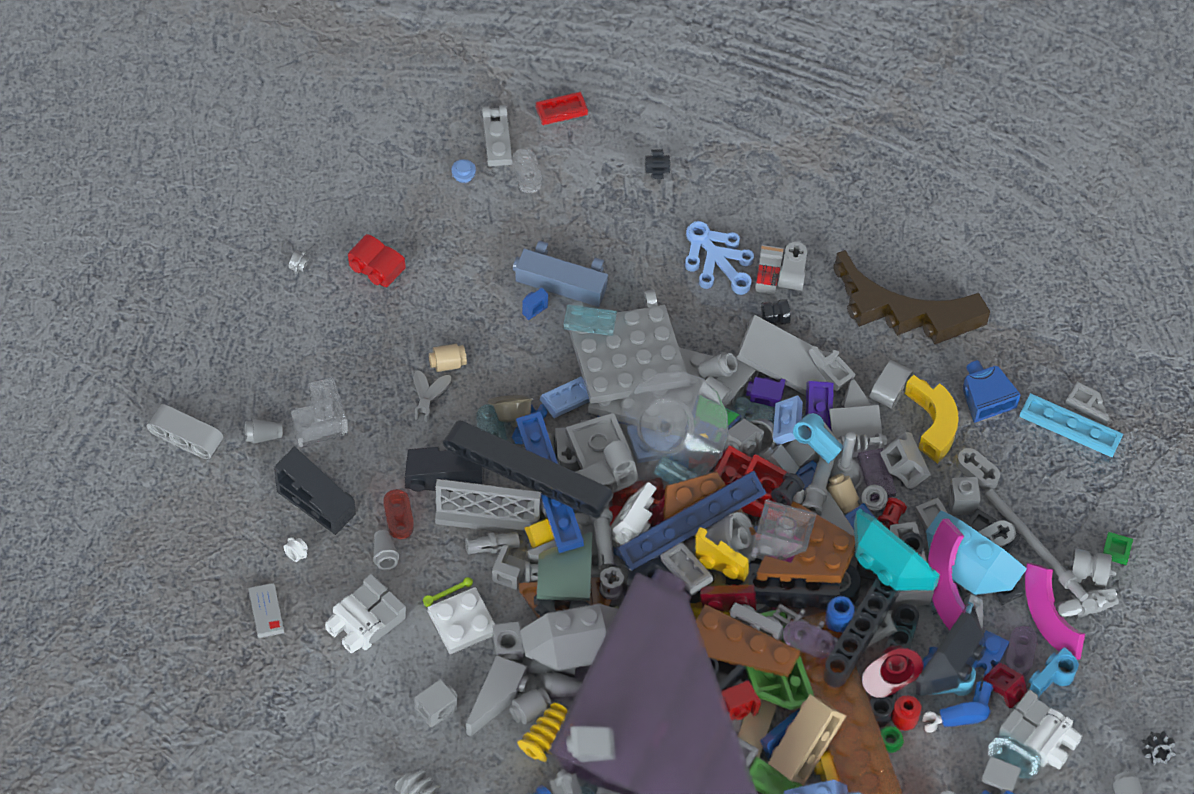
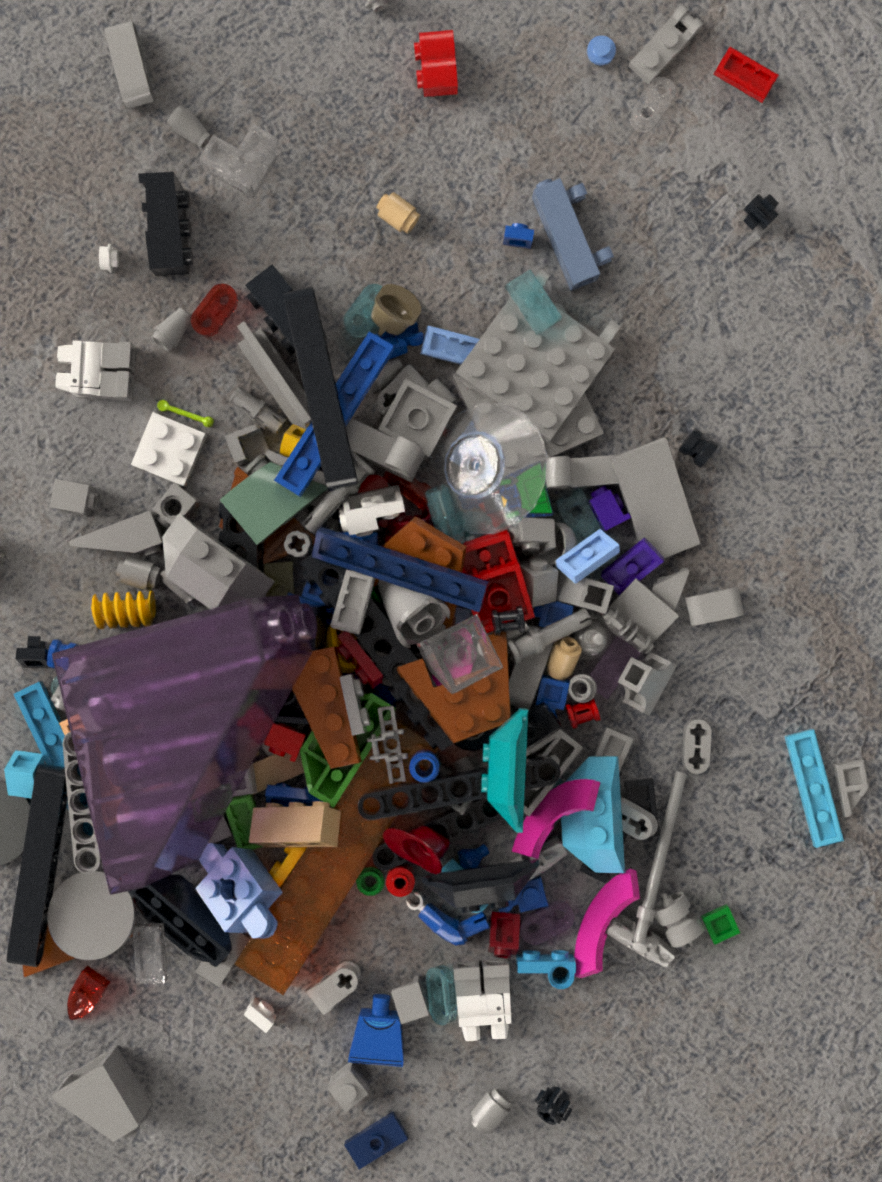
camera: 55 degrees right, 30 degrees up
(266, 610) = (35, 286): light grey tile -> none
(428, 394) = (352, 226): light grey piece -> none
(591, 743) = (66, 694): light grey slope -> none
(717, 255) = (714, 345): light blue plant -> none
(719, 366) = (590, 452): light grey cone -> none
(720, 557) = (378, 615): yellow wing -> none
(769, 269) = (737, 404): leg -> none
(793, 268) = (756, 425): light grey piece -> none
(810, 640) = (377, 767): clear purple plate -> none
(818, 438) = (585, 592): medium azure piece -> none
(832, 367) = (683, 545): light grey slope -> none
(939, 319) = (786, 520): dark brown arch -> none
(944, 414) = (720, 679): yellow arch -> none
(964, 495) = (655, 759): light grey brick -> none
(988, 392) = (782, 693): blue torso -> none

